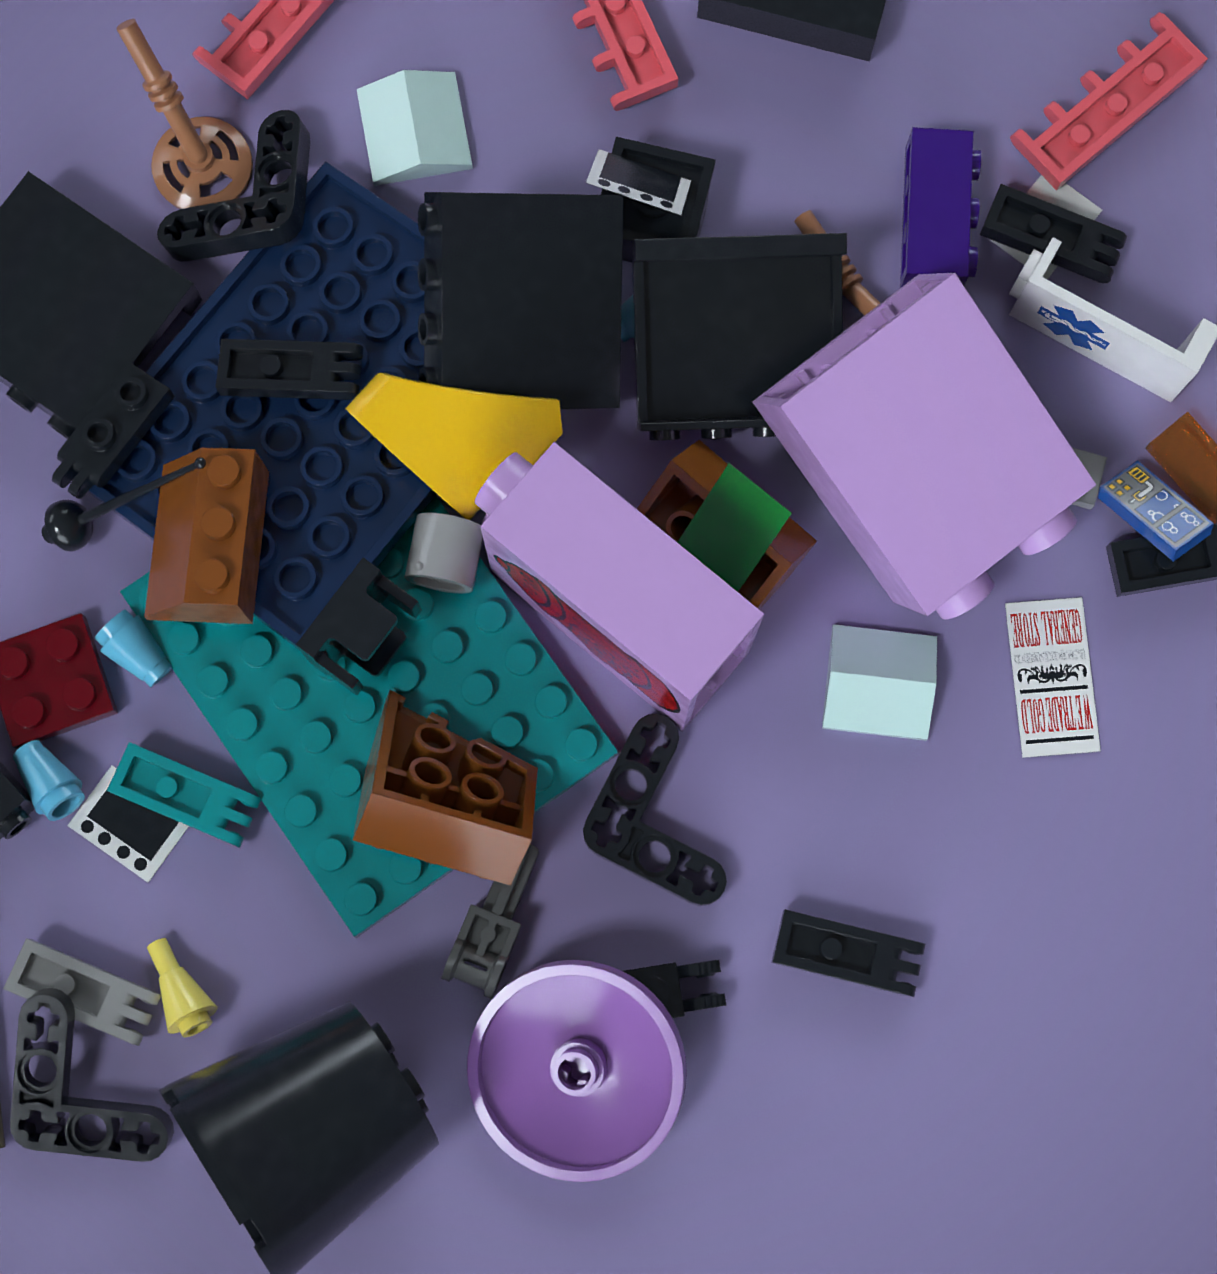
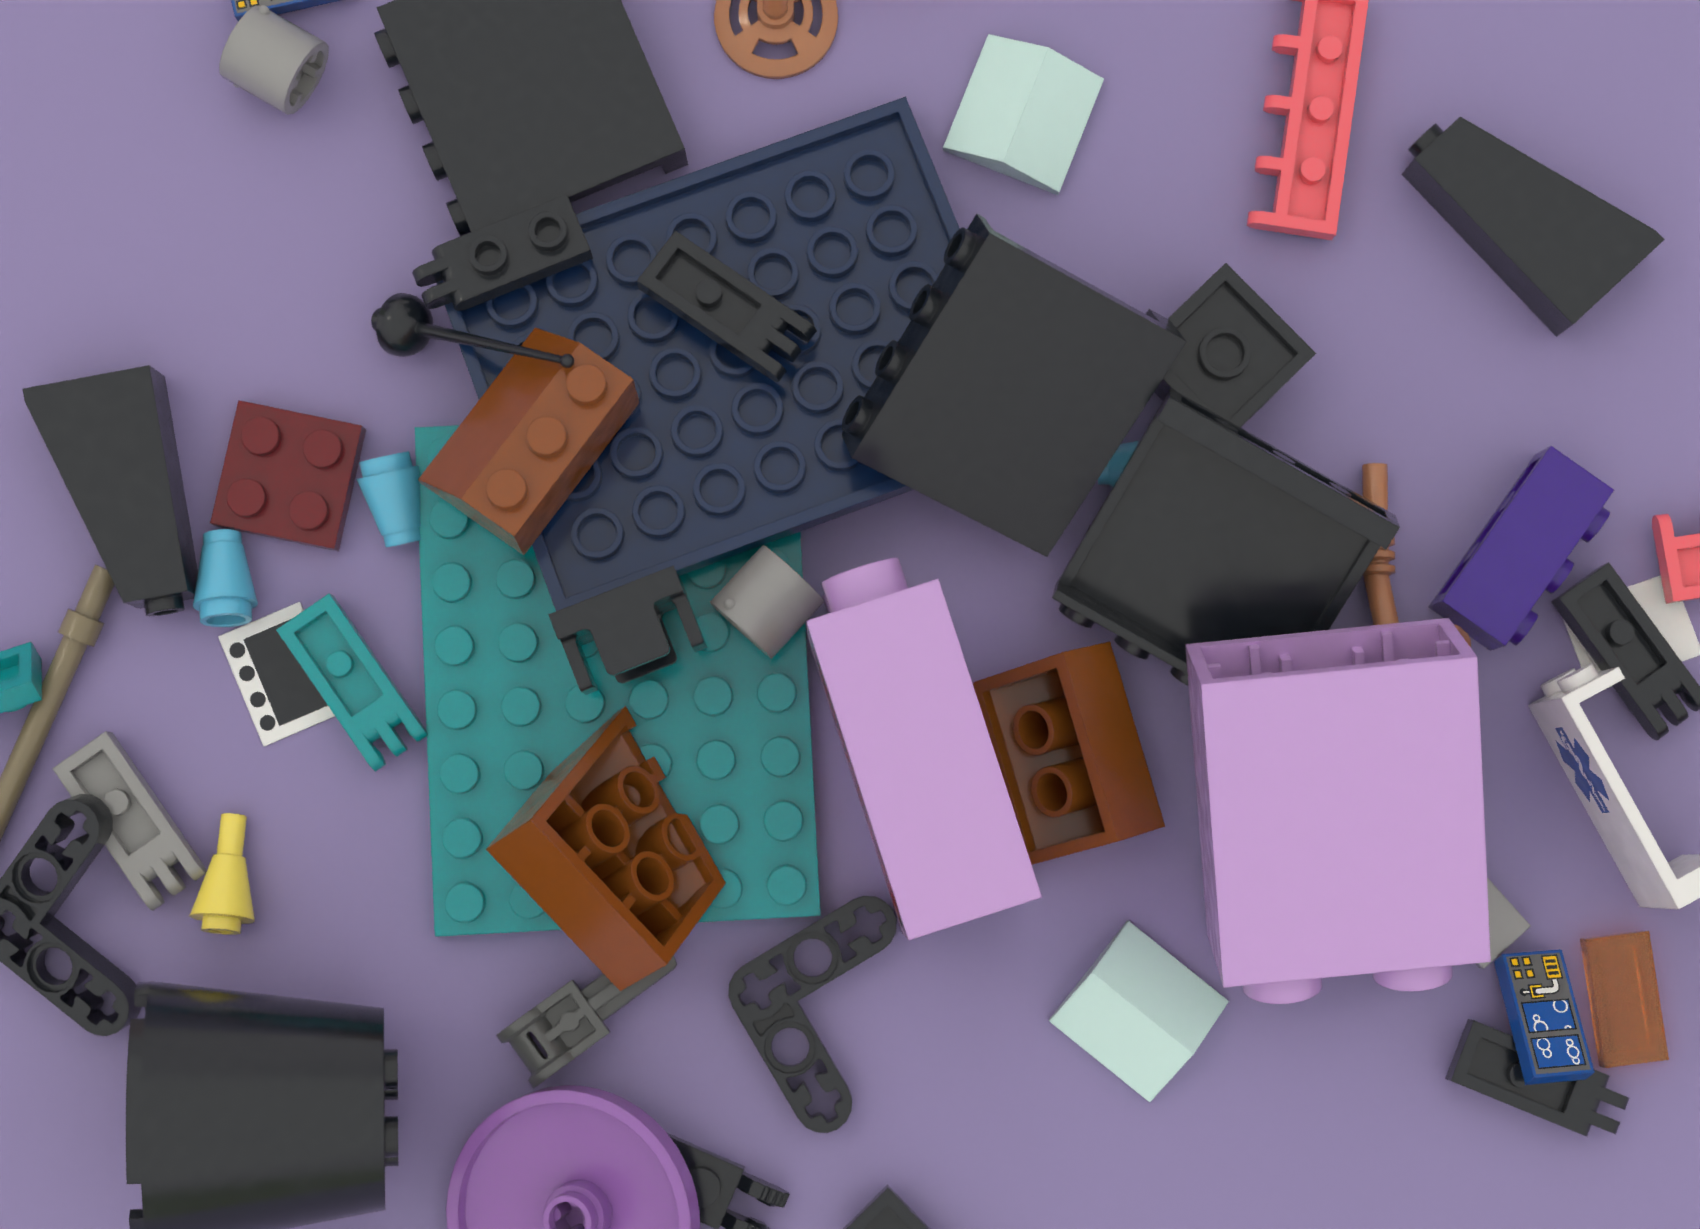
camera: 30 degrees right, 5 degrees up
(267, 217) = (814, 105): black beam -> none
(453, 433) = (848, 491): yellow panel -> none
(639, 181) = (1216, 331): black sticker -> none
(734, 527) = (1071, 768): green sticker -> none
(1052, 677) = (1323, 1118): white sticker -> none

